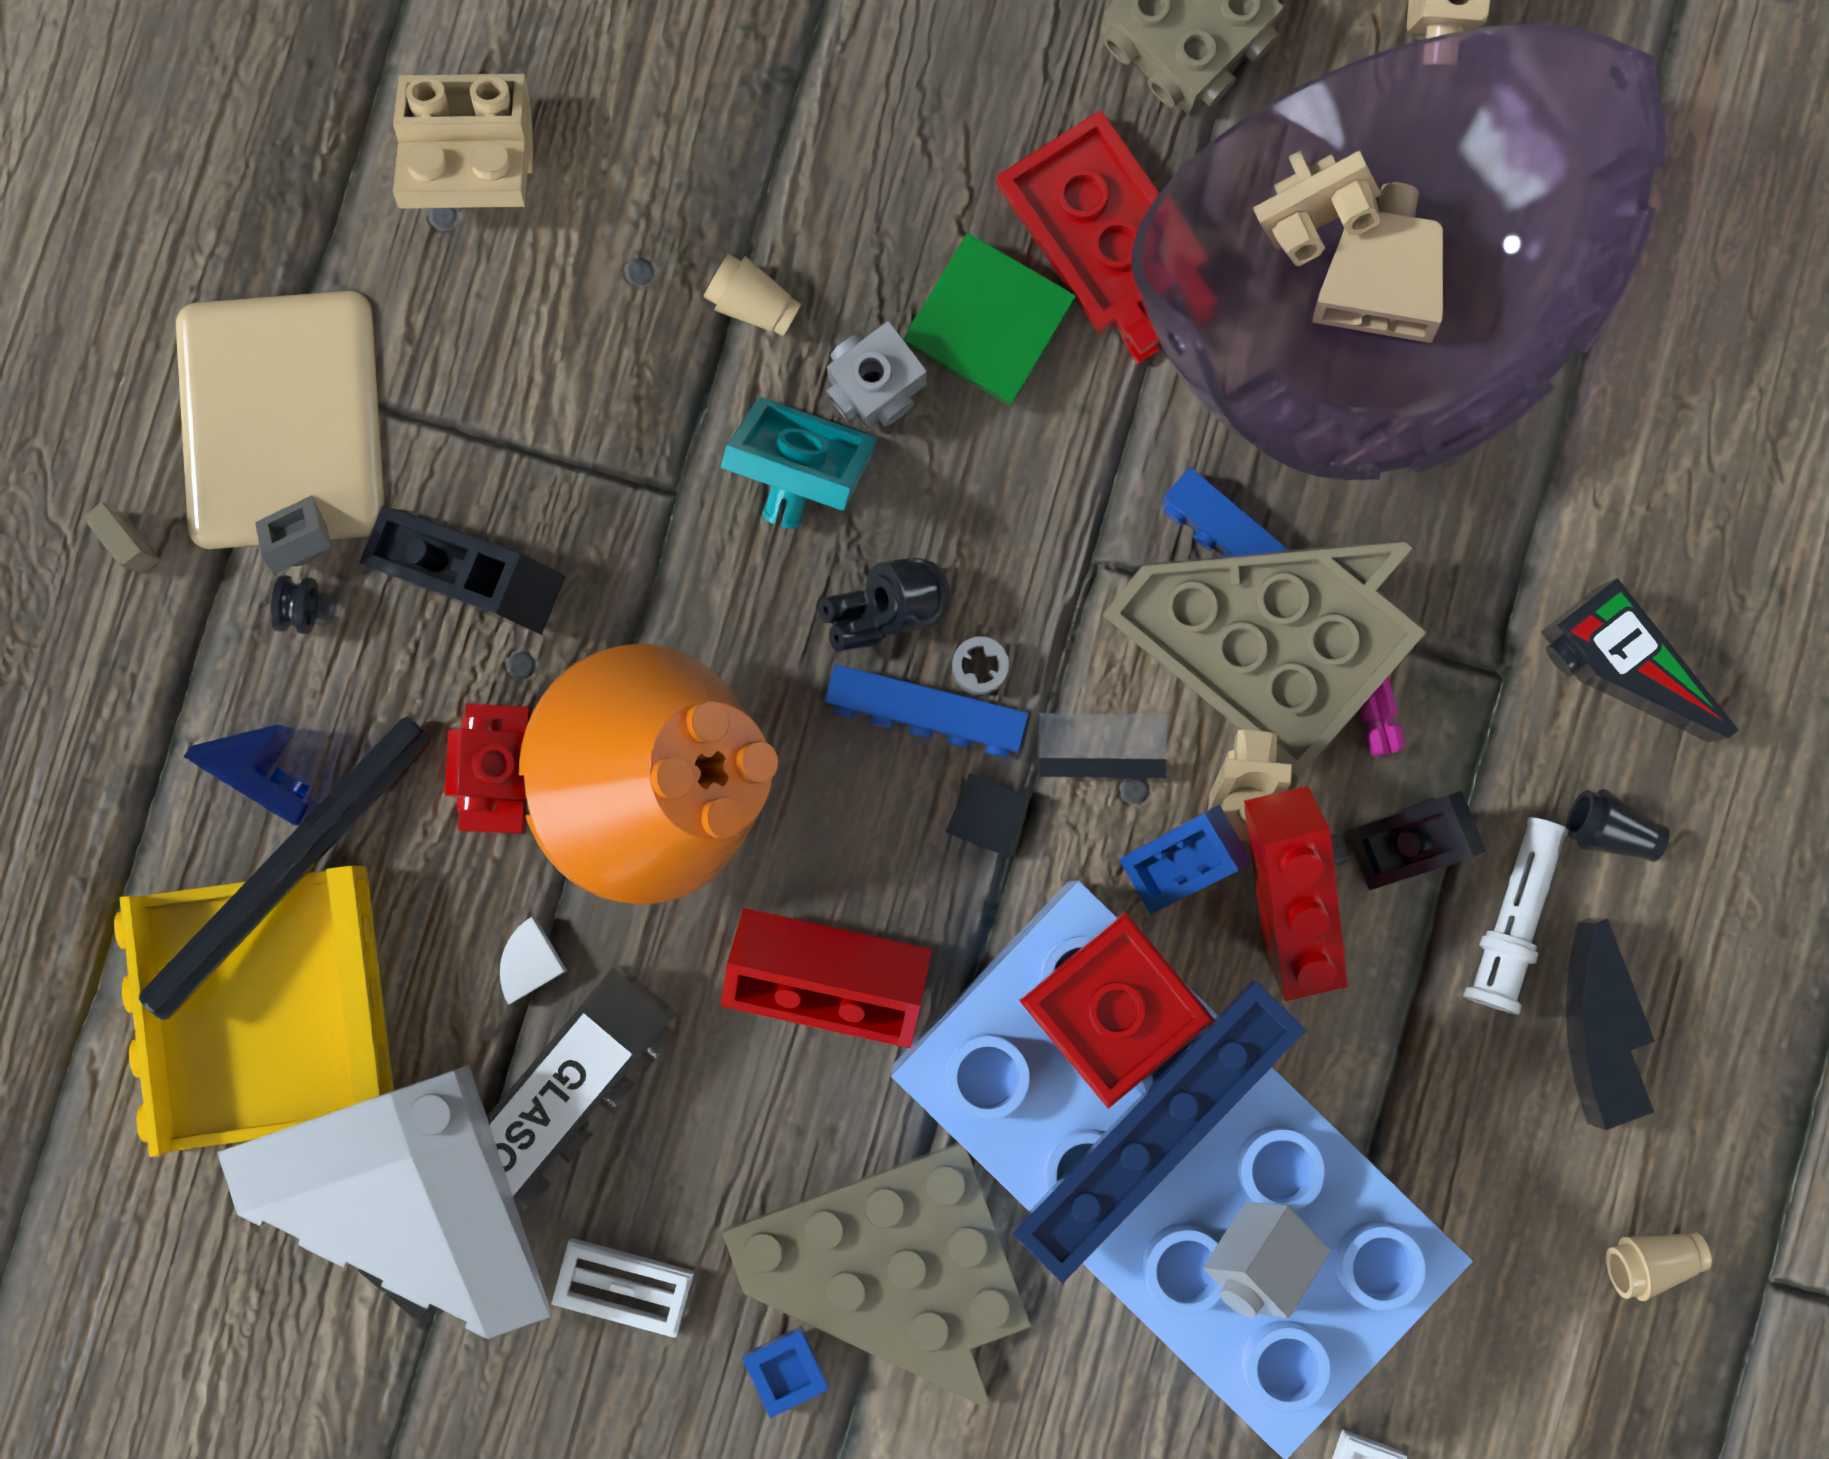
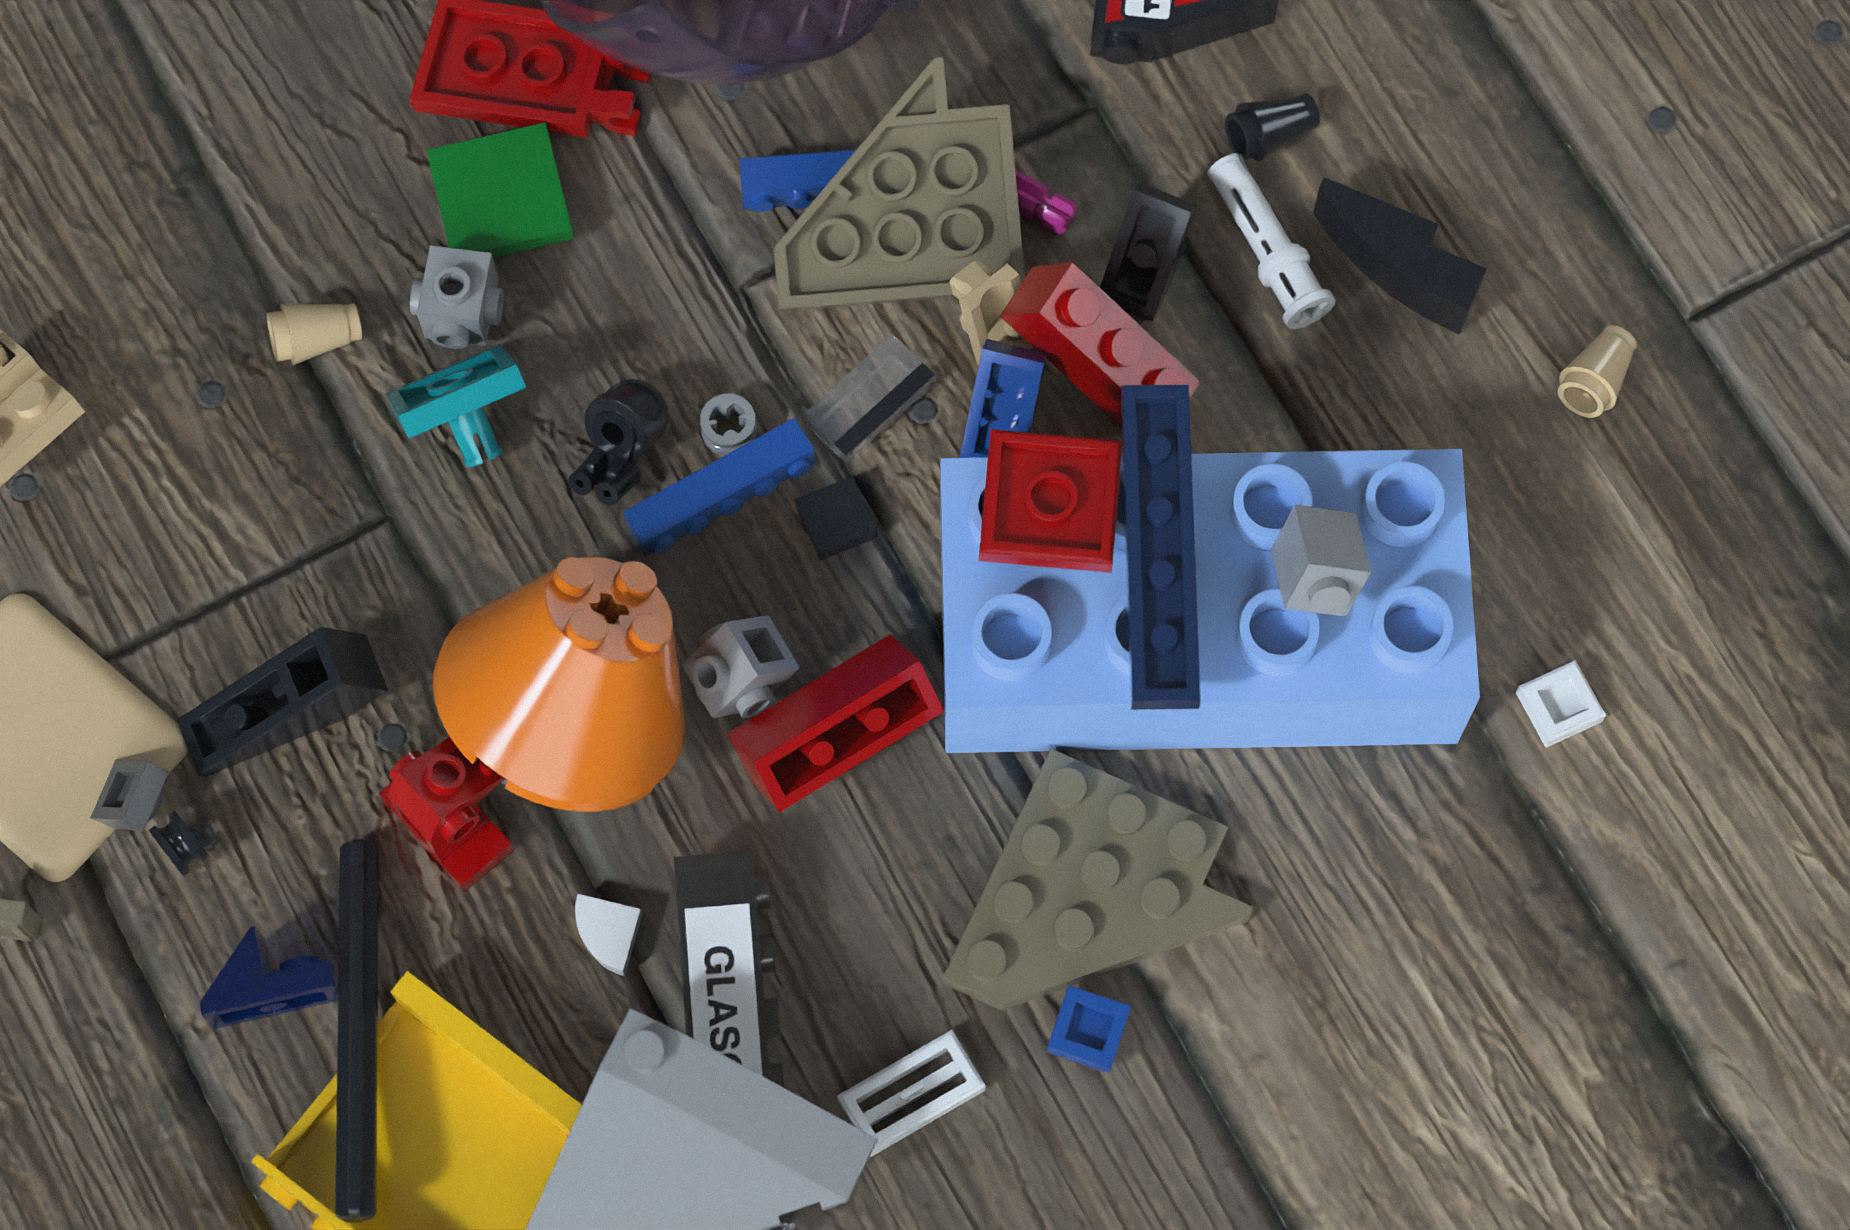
camera: 45 degrees left, 15 degrees down
(800, 868) = (740, 667): none -> light grey brick

